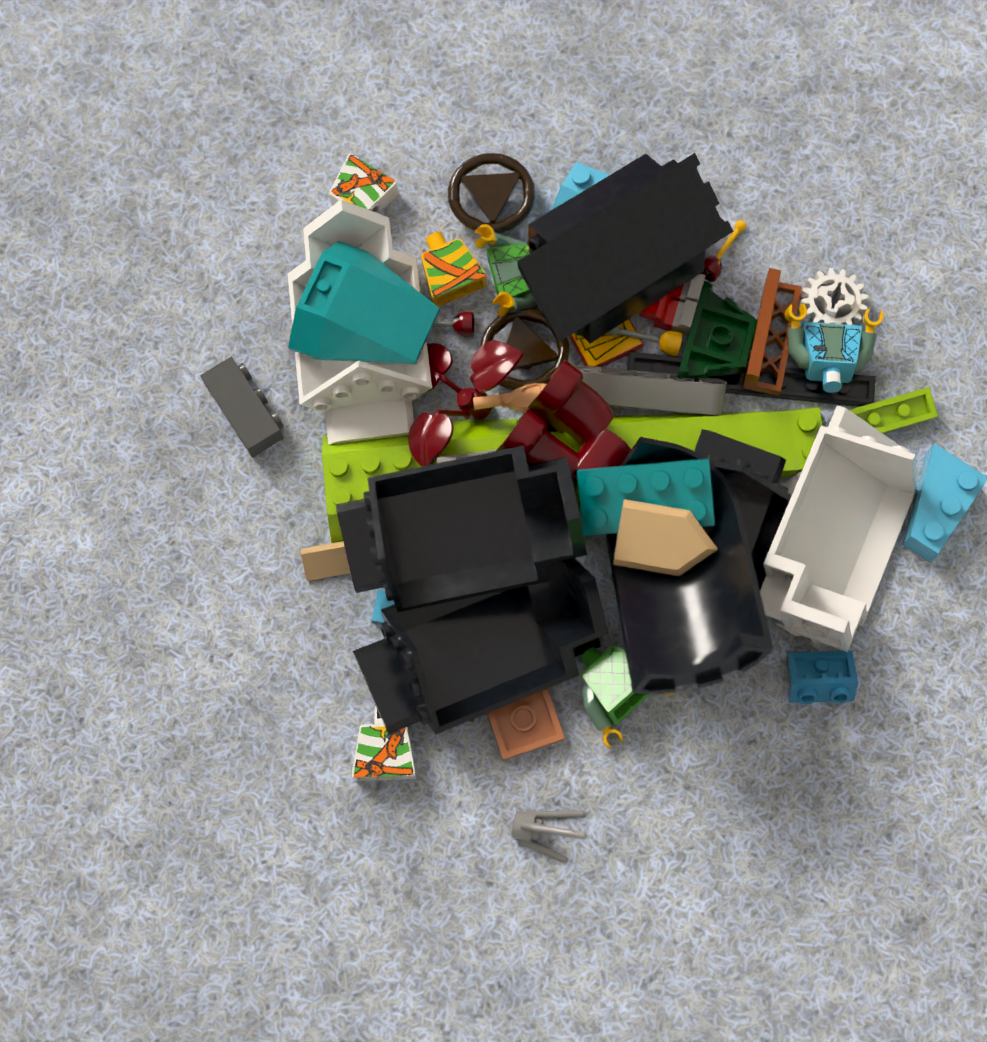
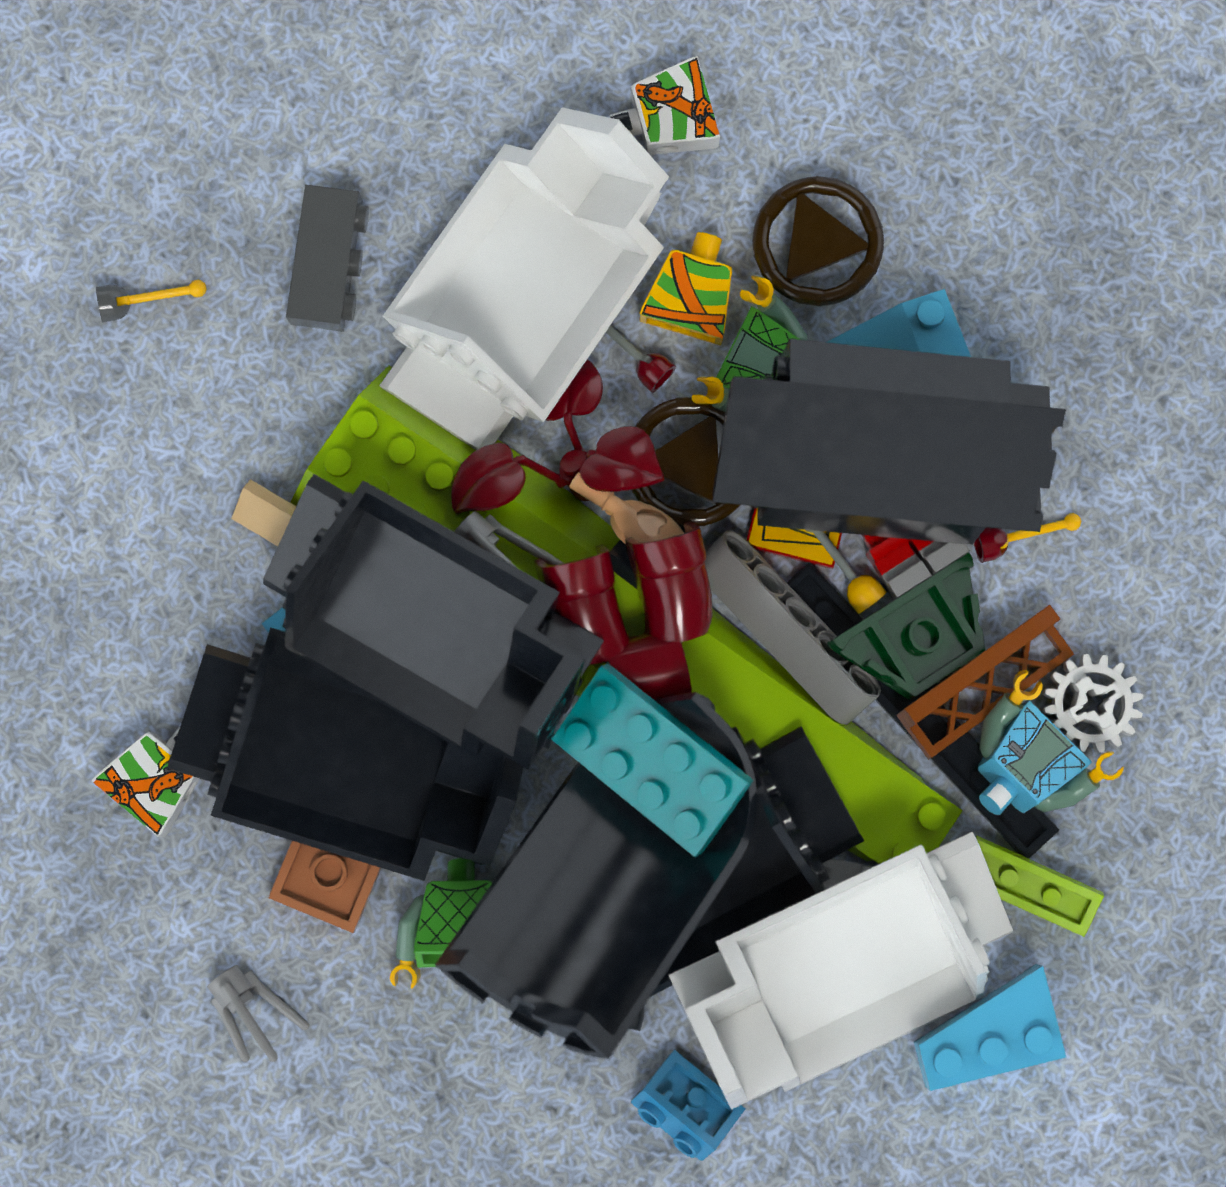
camera: 40 degrees right, 10 degrees up
(146, 521) = (116, 302): none -> hinge
(360, 311) = (540, 264): teal wedge -> none
(660, 539) = (623, 820): tan tile -> none

